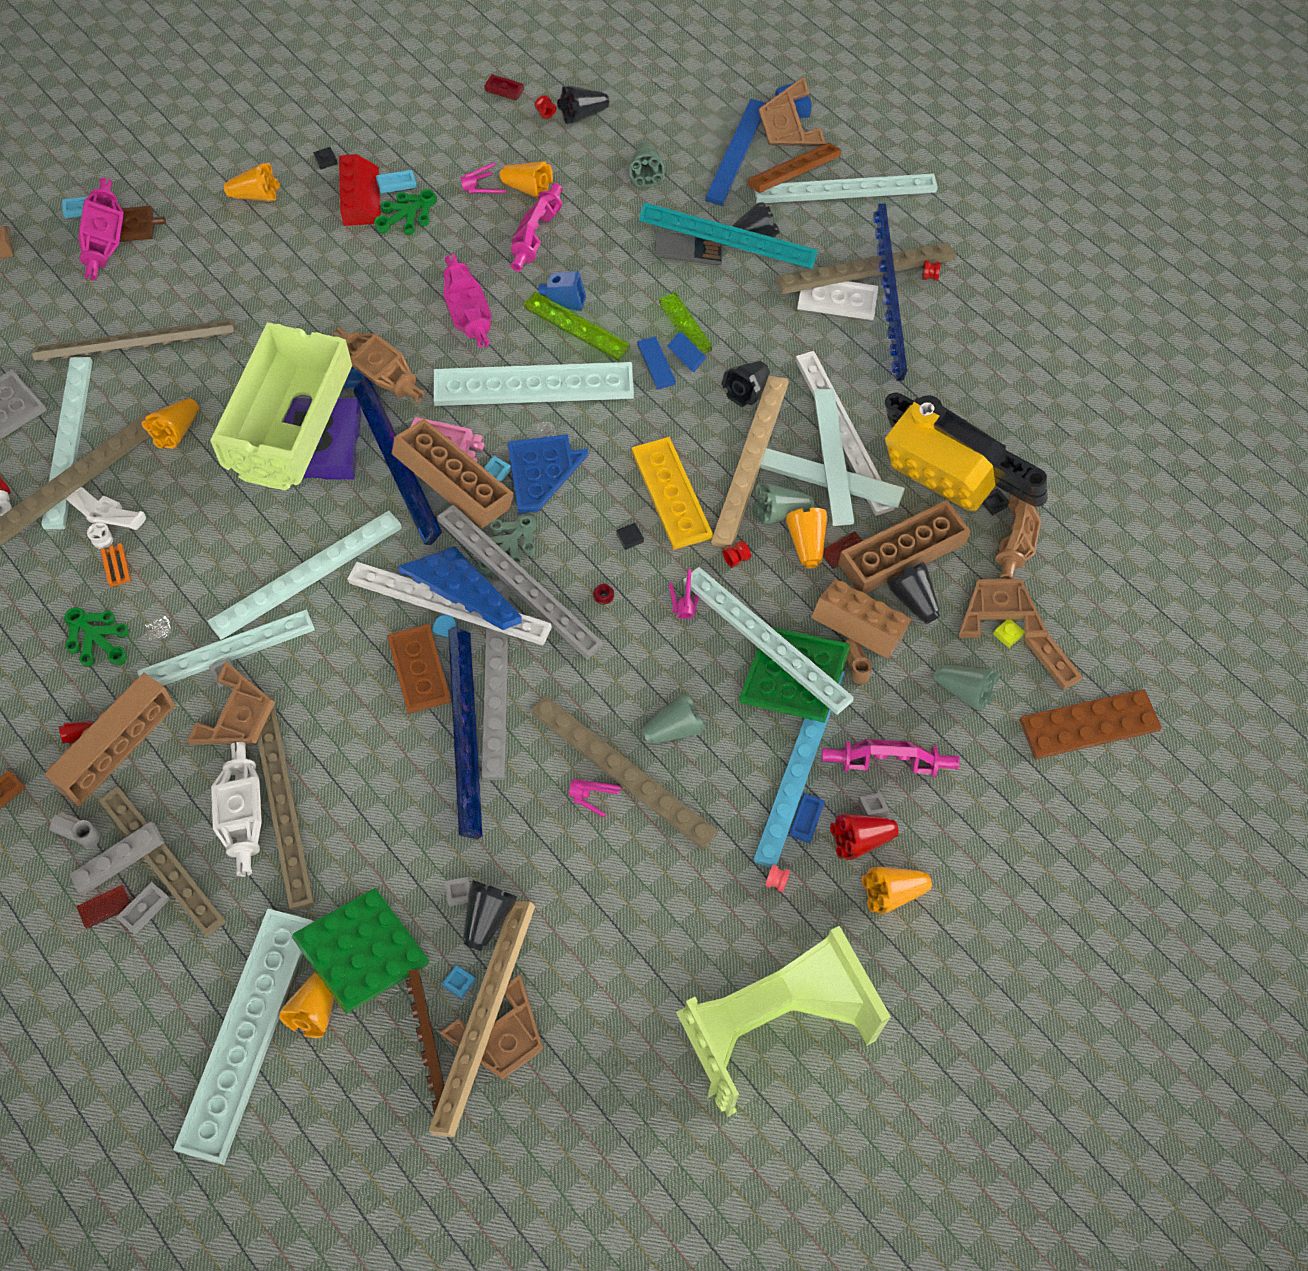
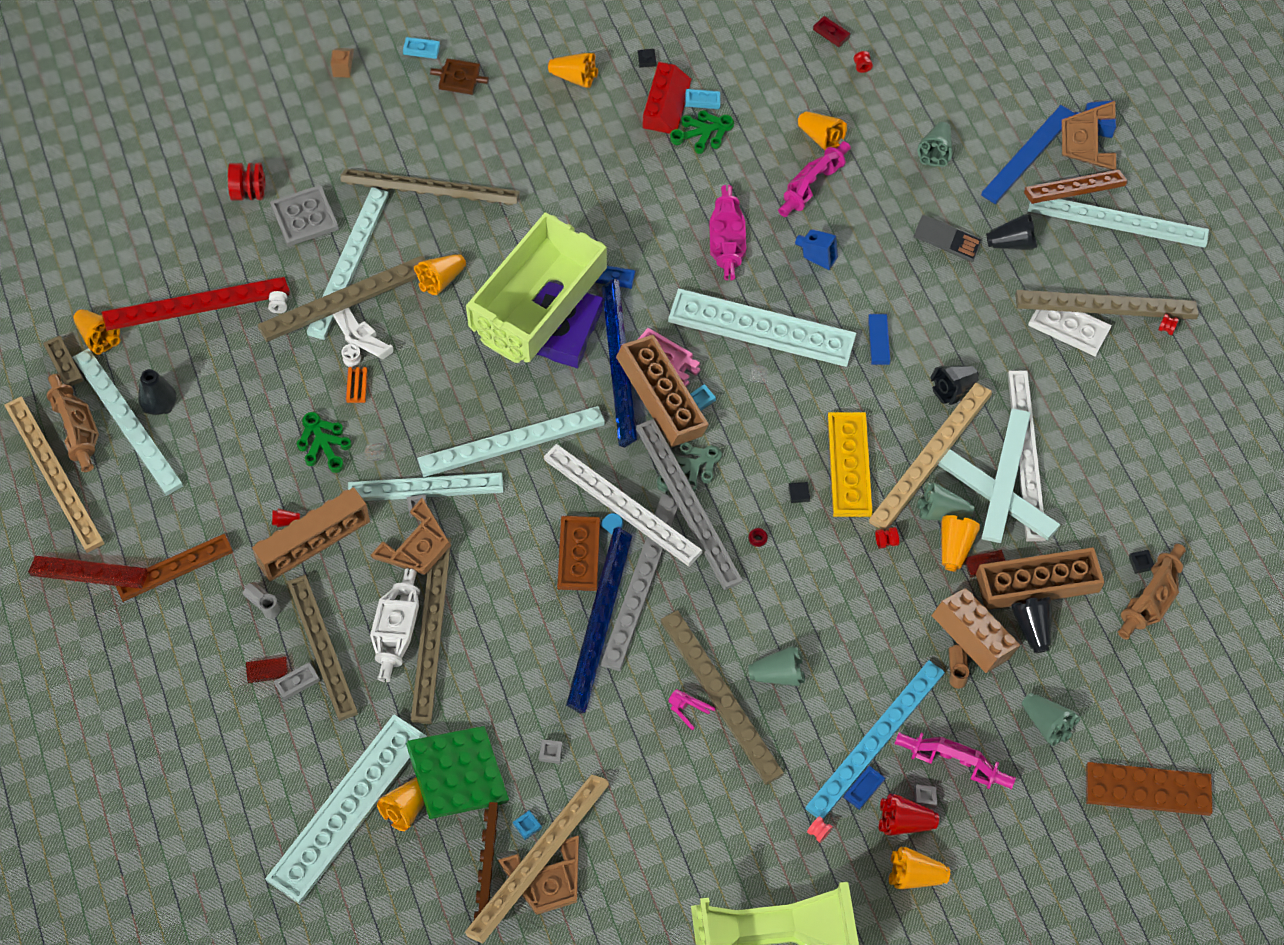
camera: 20 degrees right, 0 degrees up
(99, 228) = (430, 74): dark pink plate -> none
(116, 858) = (288, 634): light grey plate -> none
(381, 363) = (632, 269): medium nougat plate -> none
(458, 581) = (636, 488): blue wing -> none
(469, 181) = (768, 118): dark pink plant -> none
(485, 913) = (566, 776): black cone -> none
(541, 469) = (742, 407): blue wing -> none
(577, 326) = (819, 284): clear neon green plate -> none
(581, 103) = (897, 68): black cone -> none
(684, 321) = (918, 310): clear neon green plate -> none
(685, 607) = (824, 571): dark pink plant -> none
(686, 351) = (910, 337): blue tile -> none
(728, 235) = (987, 238): teal plate -> none
(770, 642) = (885, 624): light aqua plate -> none
(776, 690) = (899, 660): green plate -> none
(890, 297) = (1117, 340): clear blue plate -> none
(955, 456) = (1113, 510): piece -> none
(1001, 600) = (1109, 653): medium nougat wing -> none
(1008, 633) = (1107, 684): neon yellow plate -> none
(1054, 661) = (1137, 720): medium nougat plate -> none

